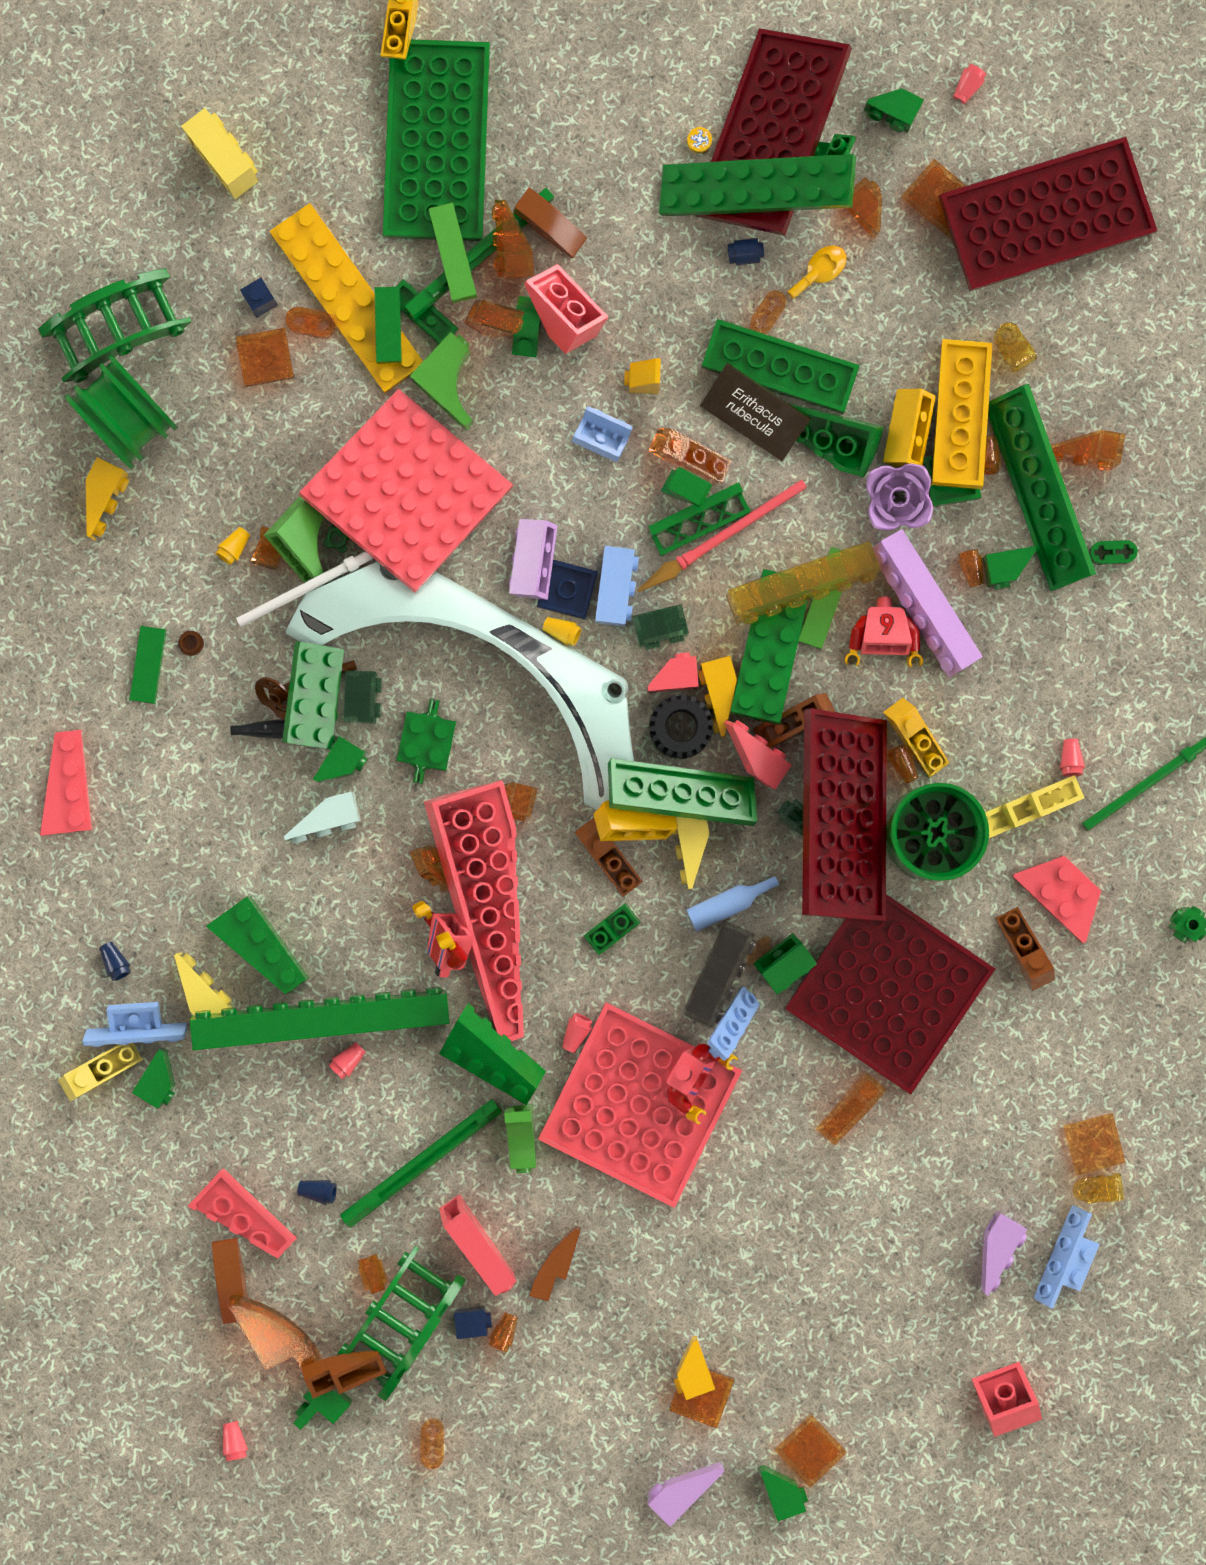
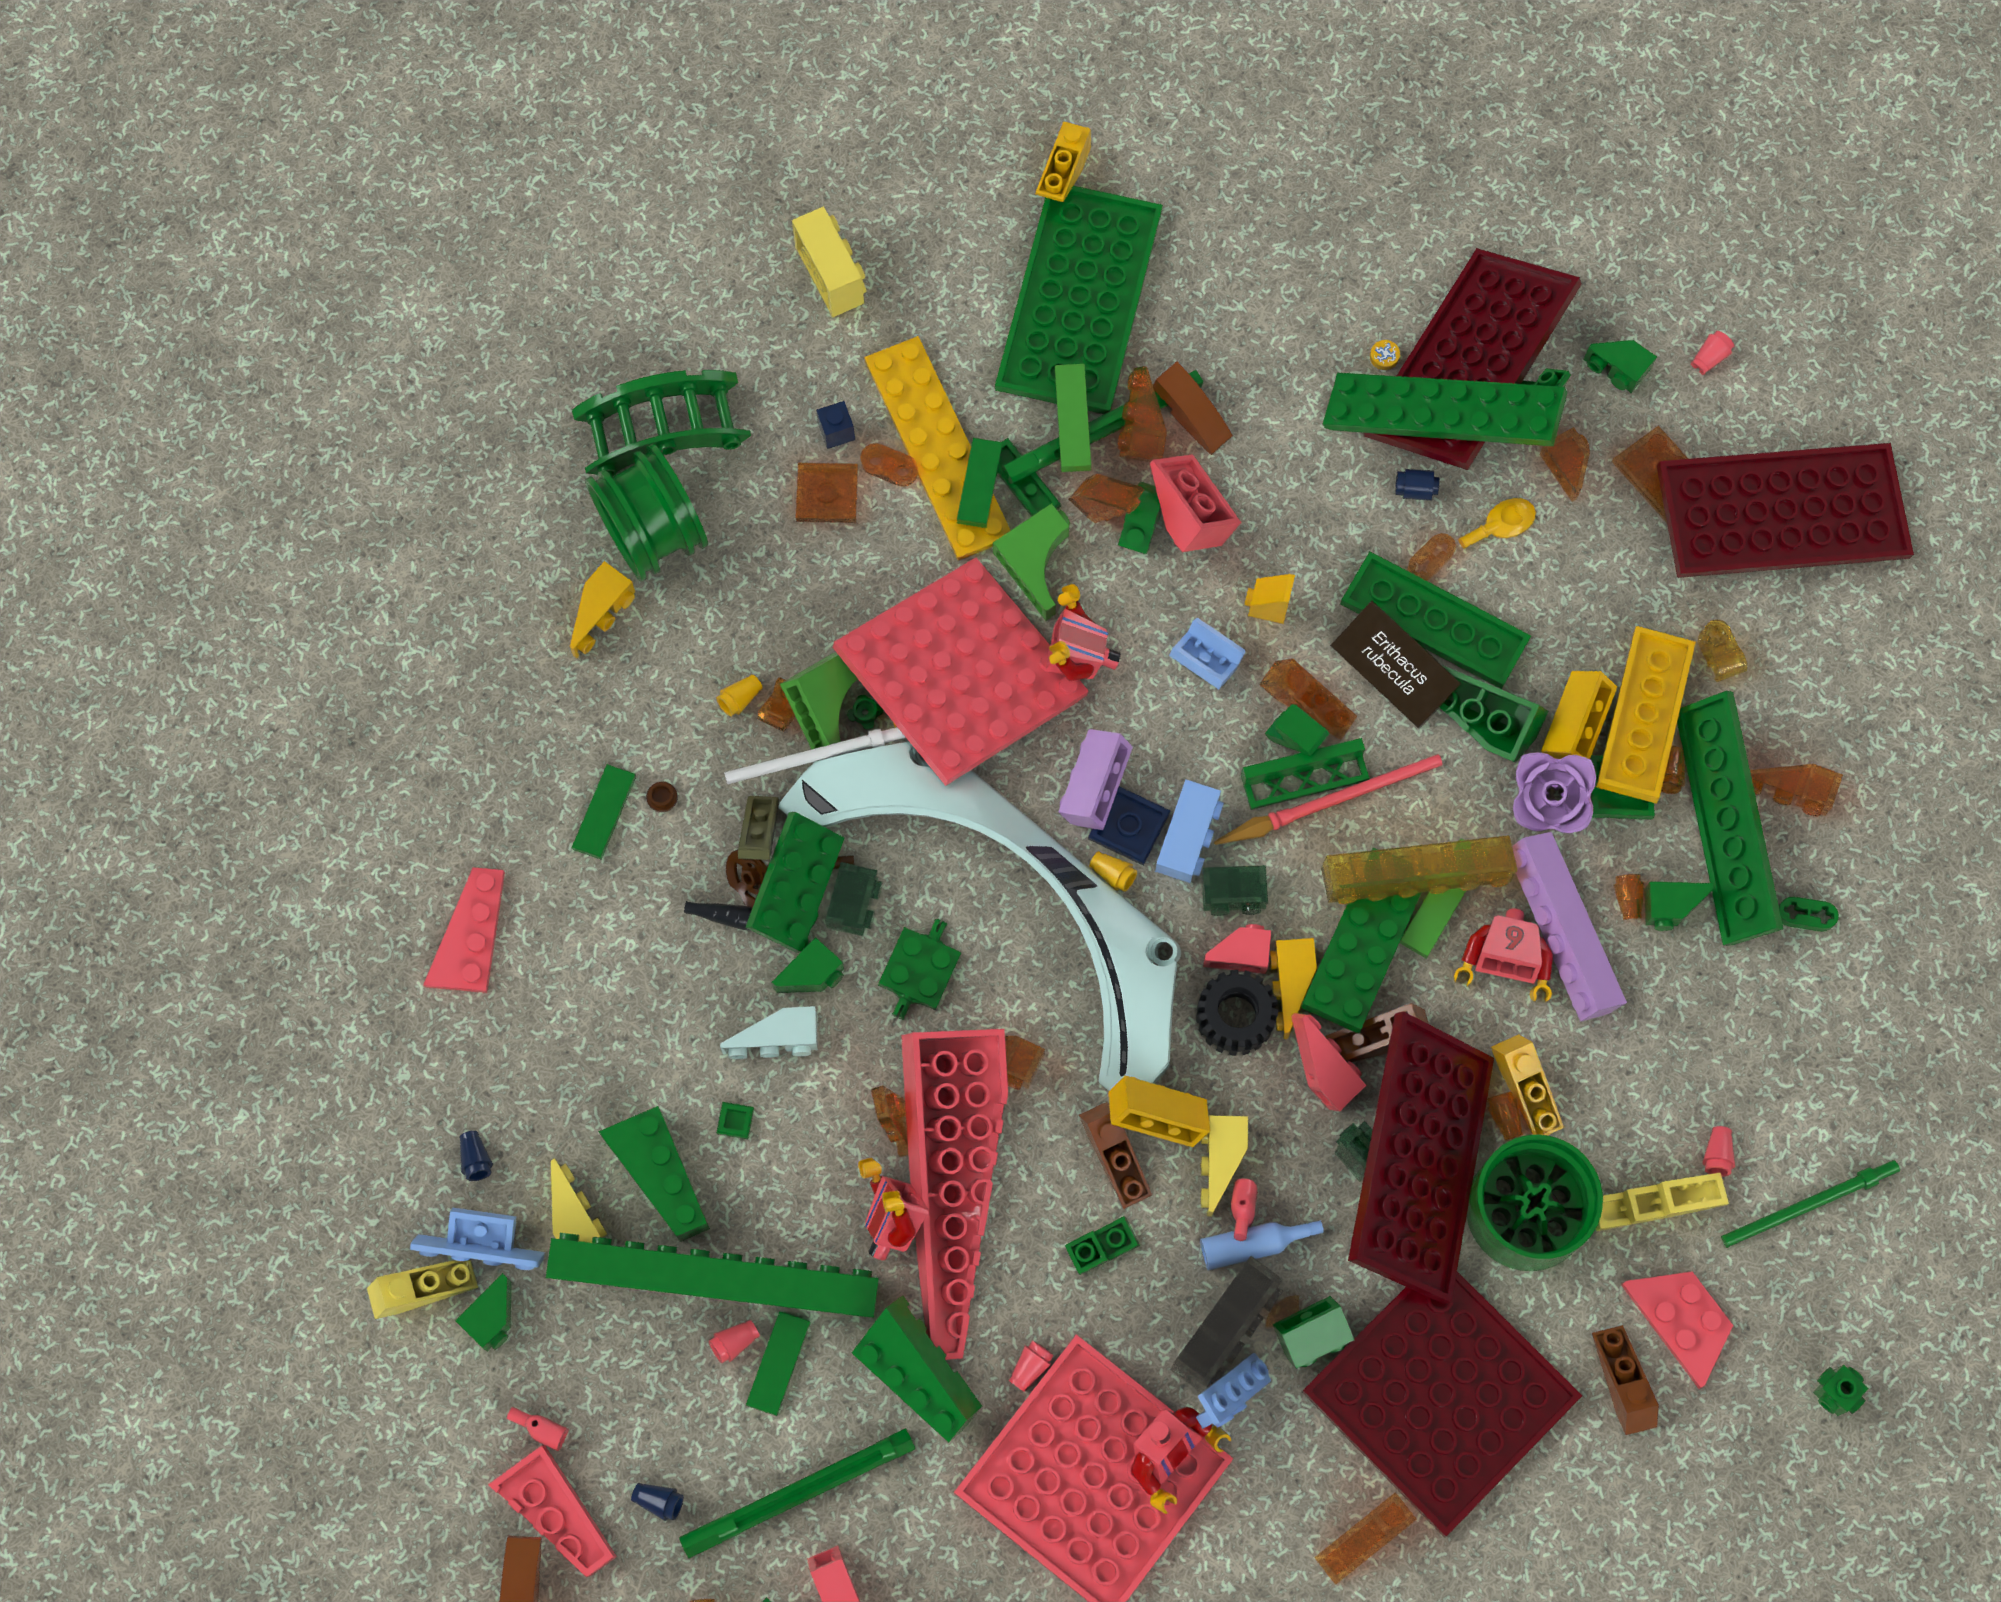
camera: 15 degrees right, 15 degrees down
(222, 1158) = (545, 1432): none -> coral piece
(274, 656) = (758, 828): none -> olive tile
(309, 891) = (735, 1120): none -> green tile
(384, 1070) = (778, 1363): none -> green tile
(496, 447) = (1078, 642): none -> torso
(521, 1137) = (933, 1482): bright green arch -> none
(681, 792) = (1223, 1088): plate -> none
(714, 879) = (1243, 1206): none -> coral piece

